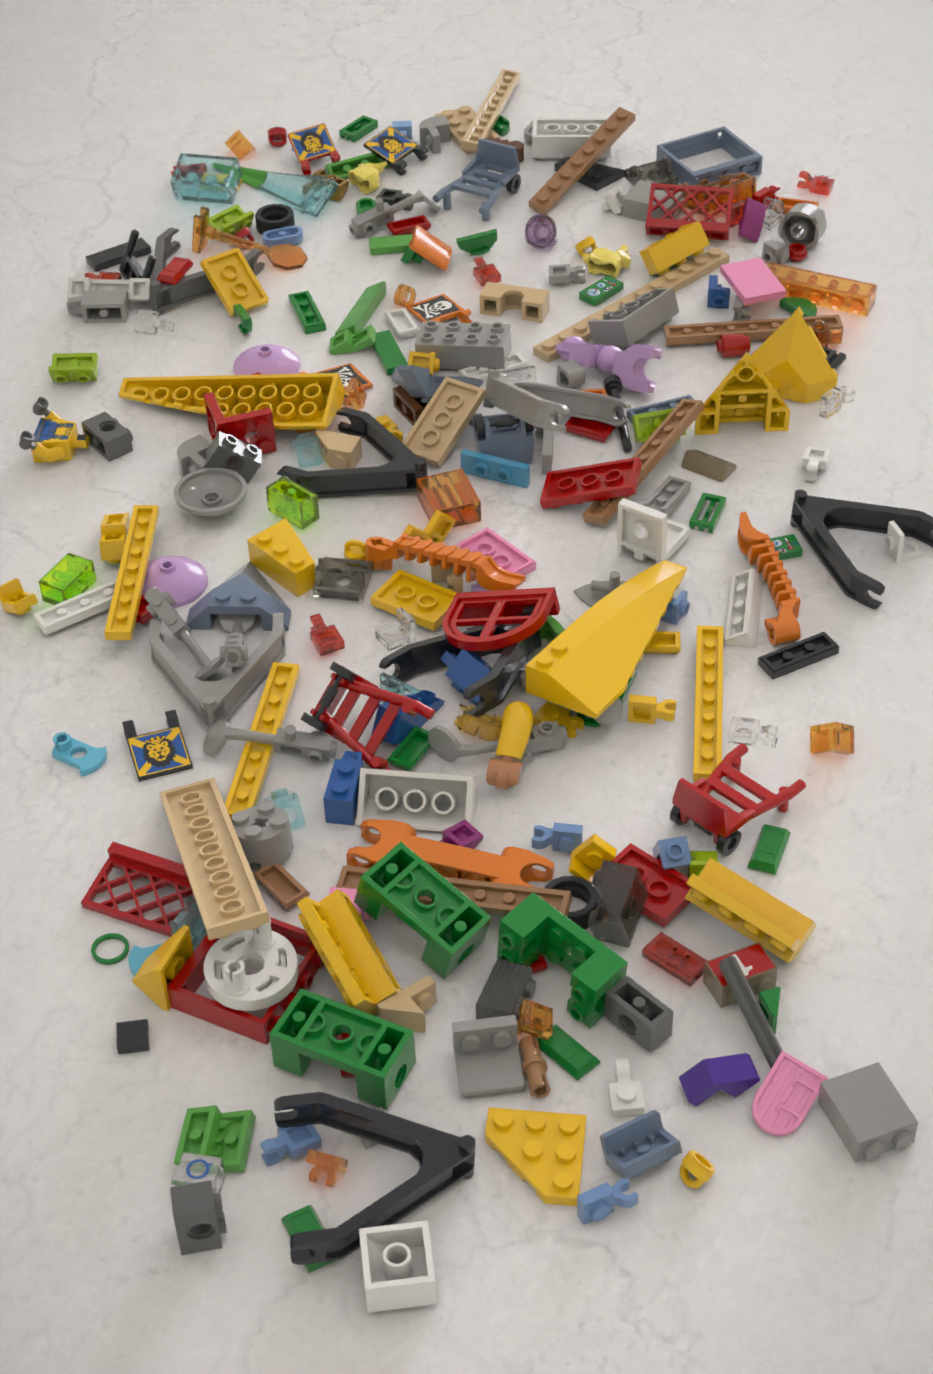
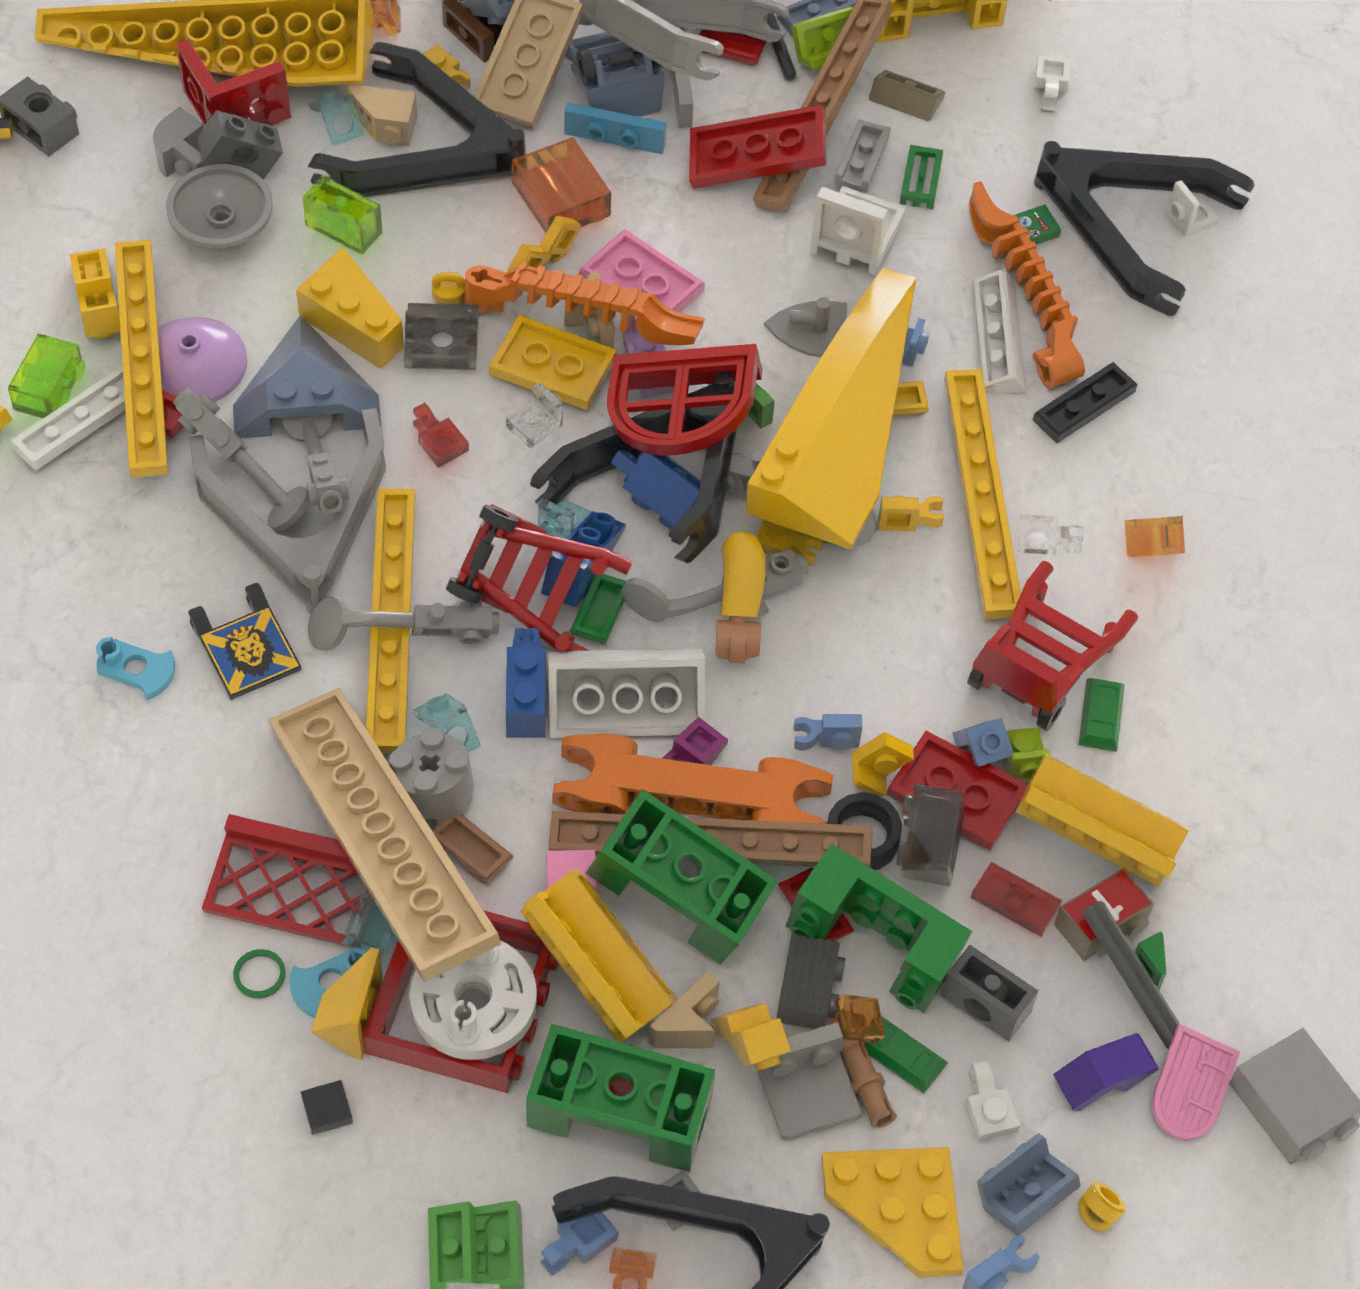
camera: 15 degrees left, 15 degrees up
(448, 1013) = (753, 1035): none -> yellow slope
(469, 724) = (702, 570): clear yellow hinge -> none

